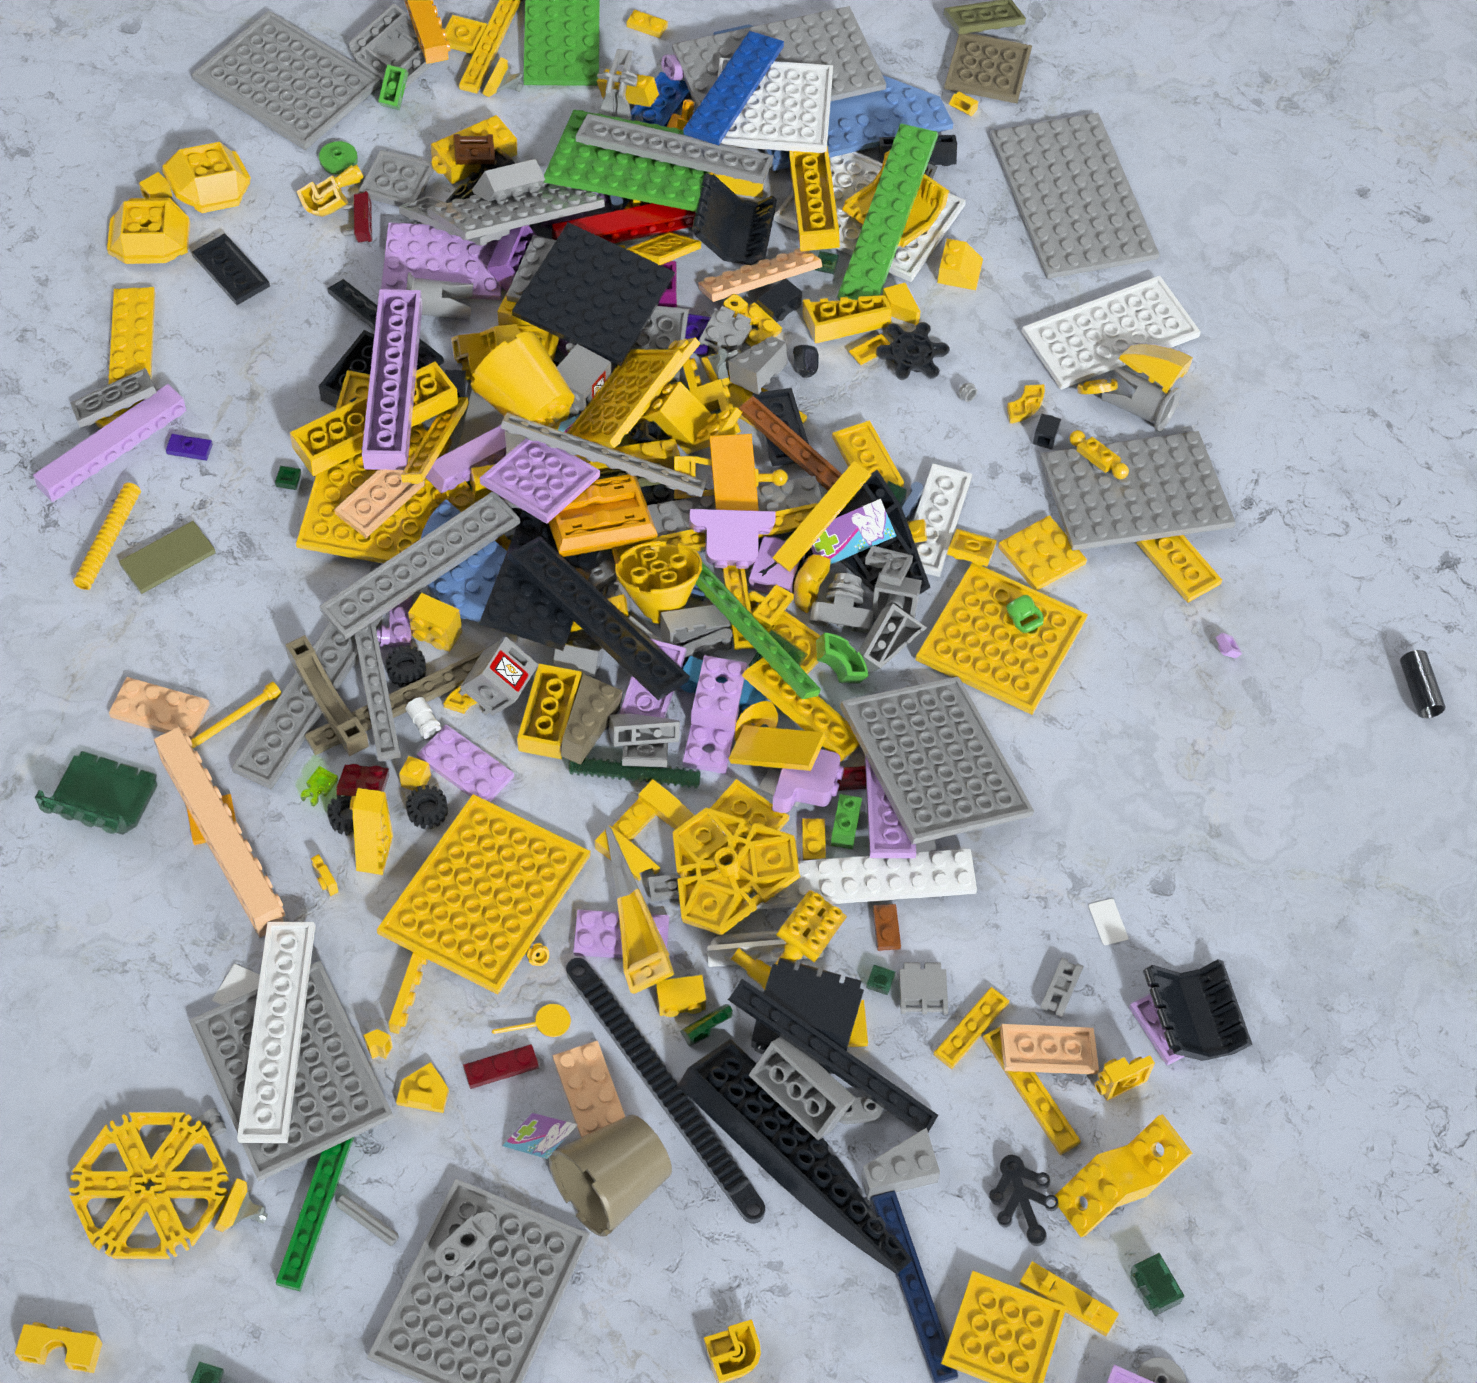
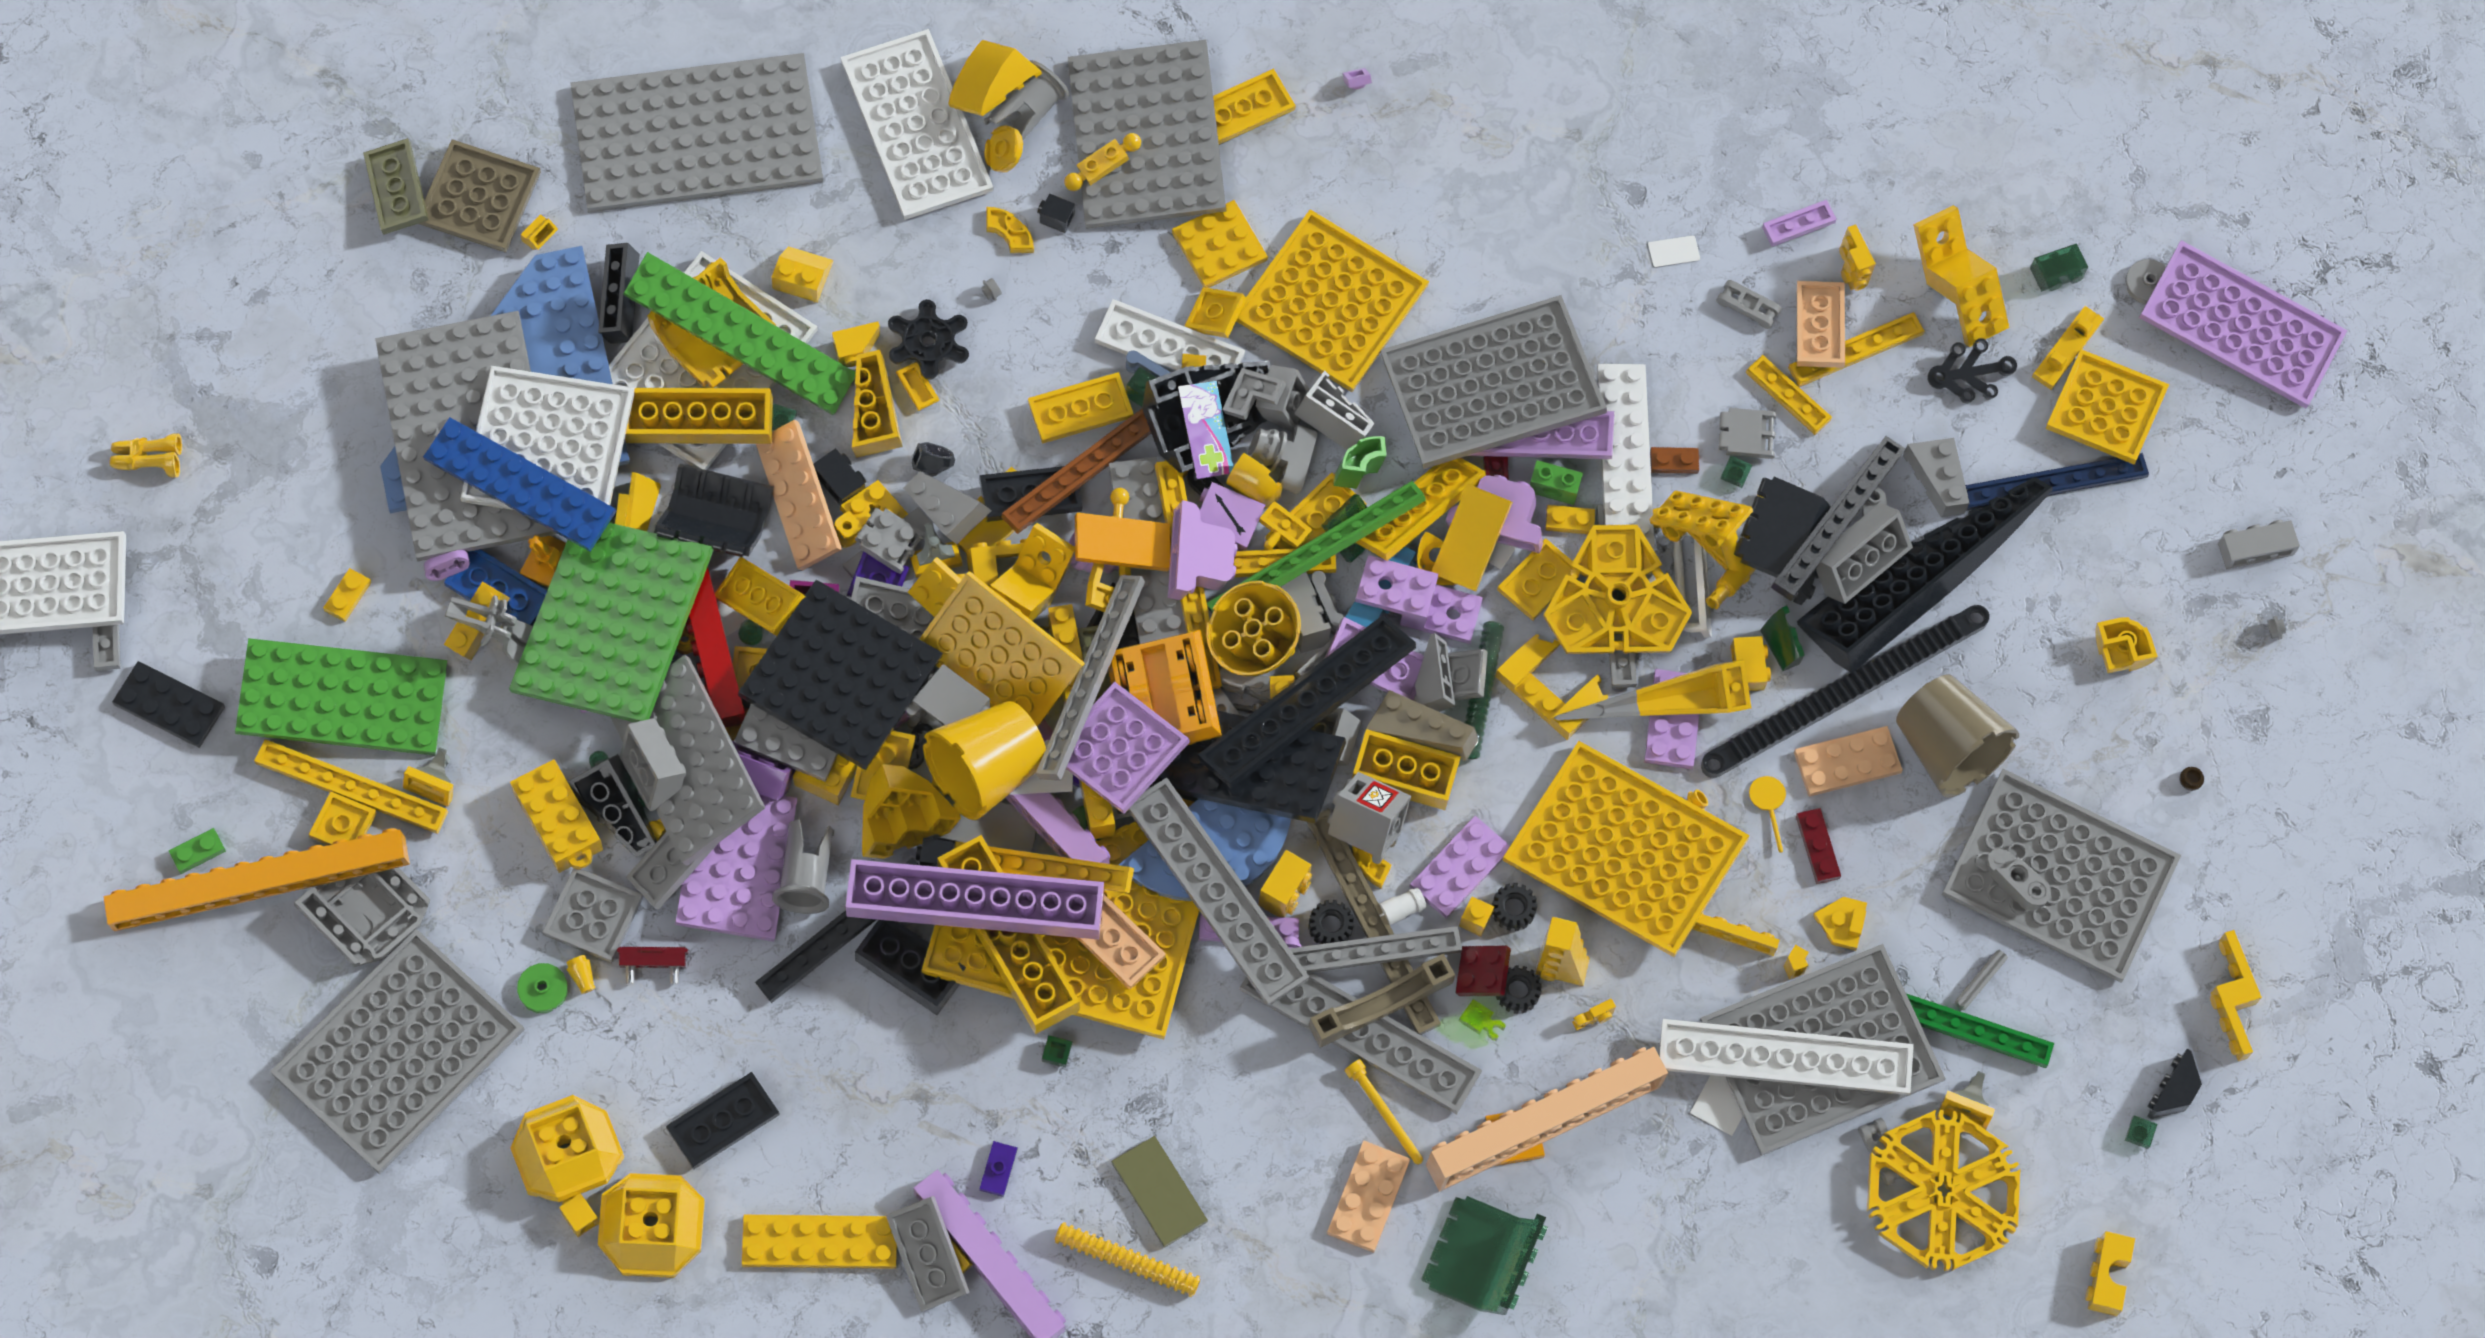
camera: 90 degrees left, 10 degrees up
(322, 198) = (623, 1002): yellow brick -> none
(393, 87) = (444, 908): bright green brick -> none
(474, 149) = (588, 808): reddish brown plate -> none
(539, 1135) = (1911, 801): sticker -> none
(674, 148) = (612, 566): light grey plate -> none
(821, 516) = (1191, 452): yellow tile -> none
(1023, 608) = (1305, 272): bright green piece -> none
(1198, 1011) = (1782, 180): black hinge -> none

